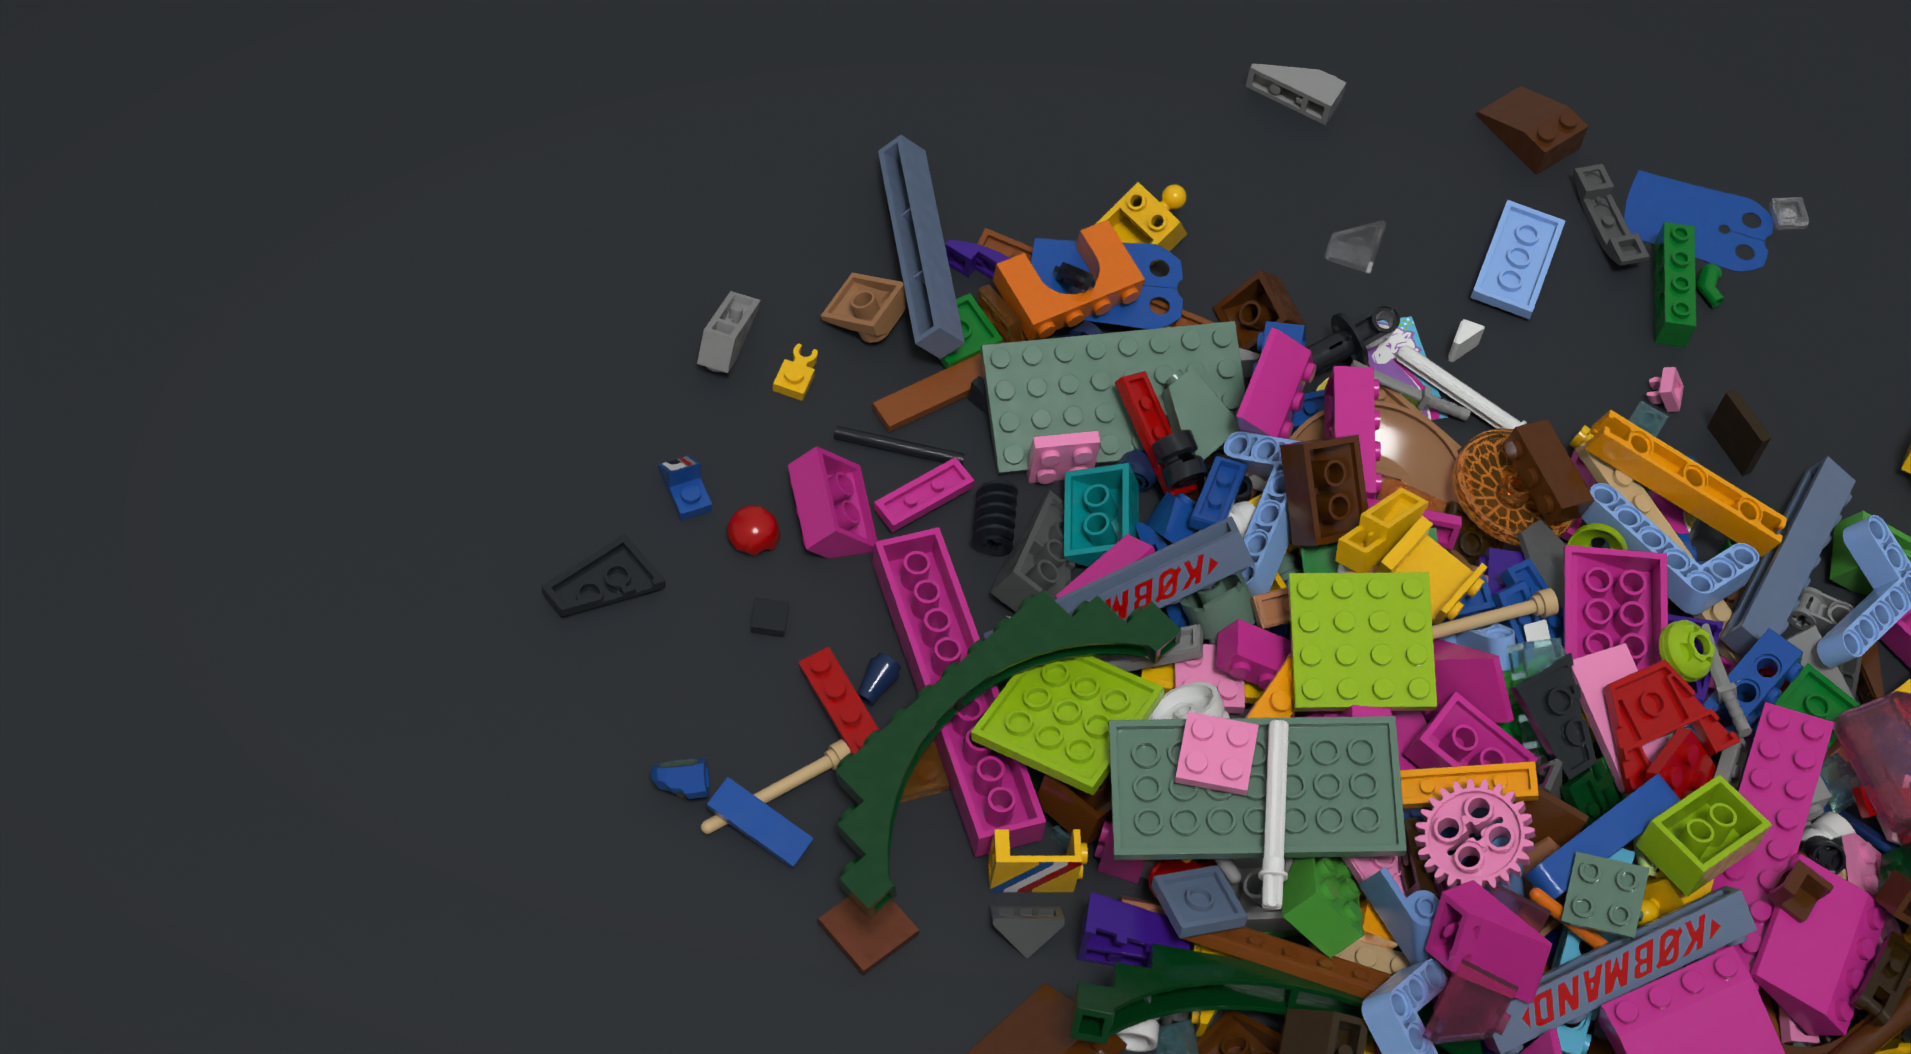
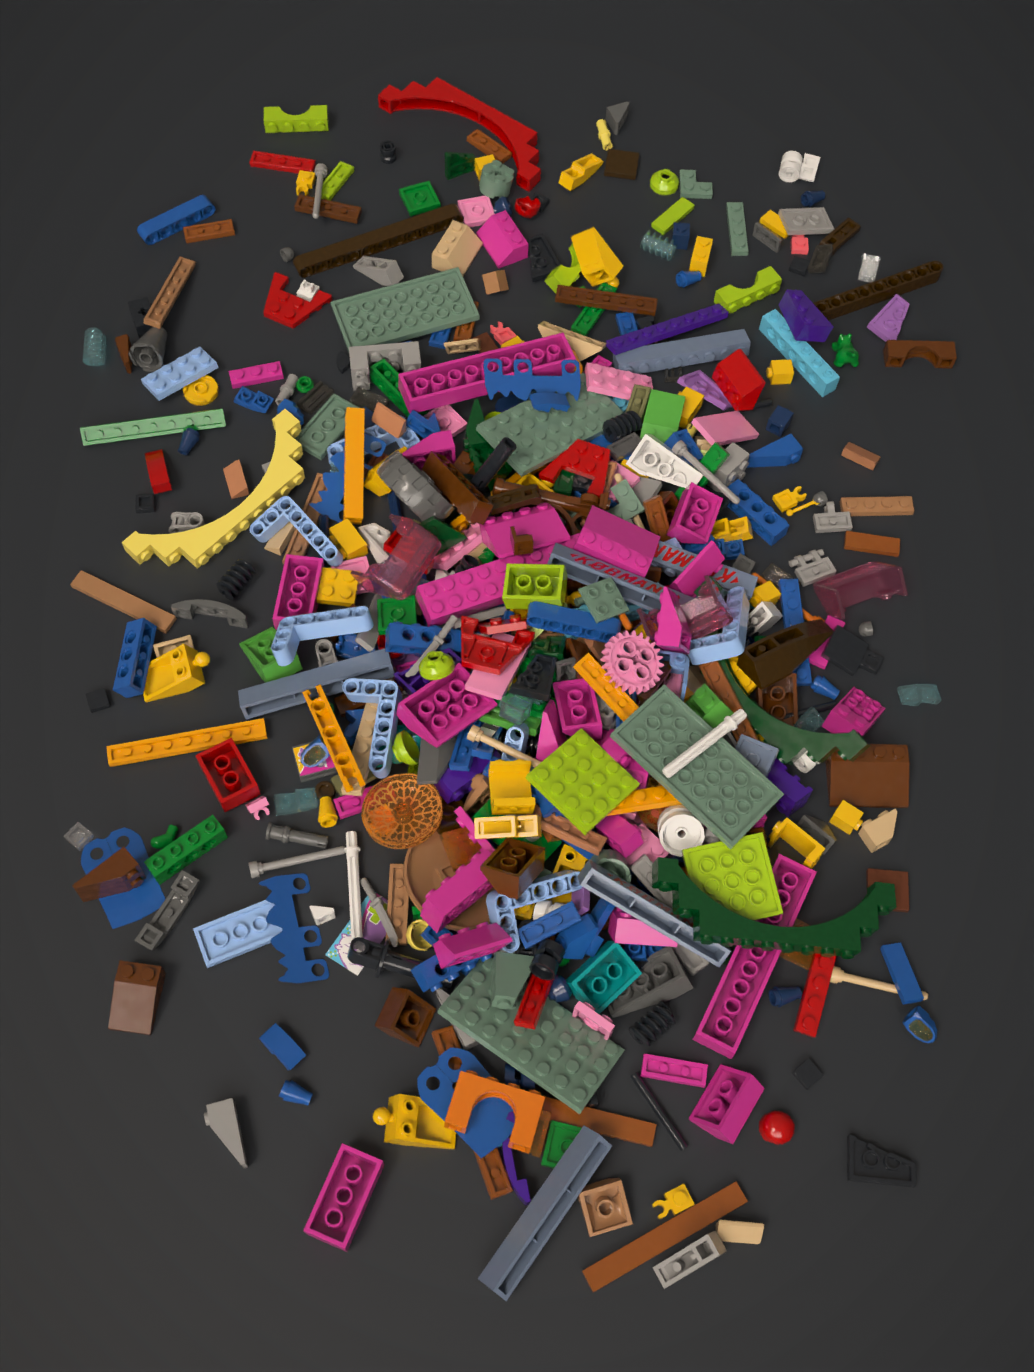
camera: 130 degrees left, 5 degrees up
(685, 486) = (790, 1186): blue slope -> none
(702, 398) = (740, 1231): none -> tan slope
(773, 338) = (664, 1237): none -> dark orange tile
(947, 993) = (879, 831): none -> tan slope
(1007, 974) = (847, 817): none -> yellow brick
(1074, 276) = (493, 1106): black axle -> none
(1127, 116) = (344, 1197): none -> dark pink brick
(1216, 753) = (703, 788): bright pink plate -> none
(1280, 167) = (295, 1093): none -> blue cone
(1343, 192) = (282, 1045): none -> blue slope
(1356, 246) = (312, 1011): clear slope -> none
(1461, 291) = (291, 938): none -> blue piece
(1548, 472) = (387, 798): reddish brown brick -> none
(1583, 330) = (258, 868): none -> light grey piece
(1600, 390) = (288, 834): none -> dark grey pin
(1705, 194) = (111, 877): none -> reddish brown slope
(1739, 432) = (260, 753): dark brown tile -> none
(1759, 379) = (228, 774): none -> red brick
(1825, 394) = (185, 742): none -> light orange plate

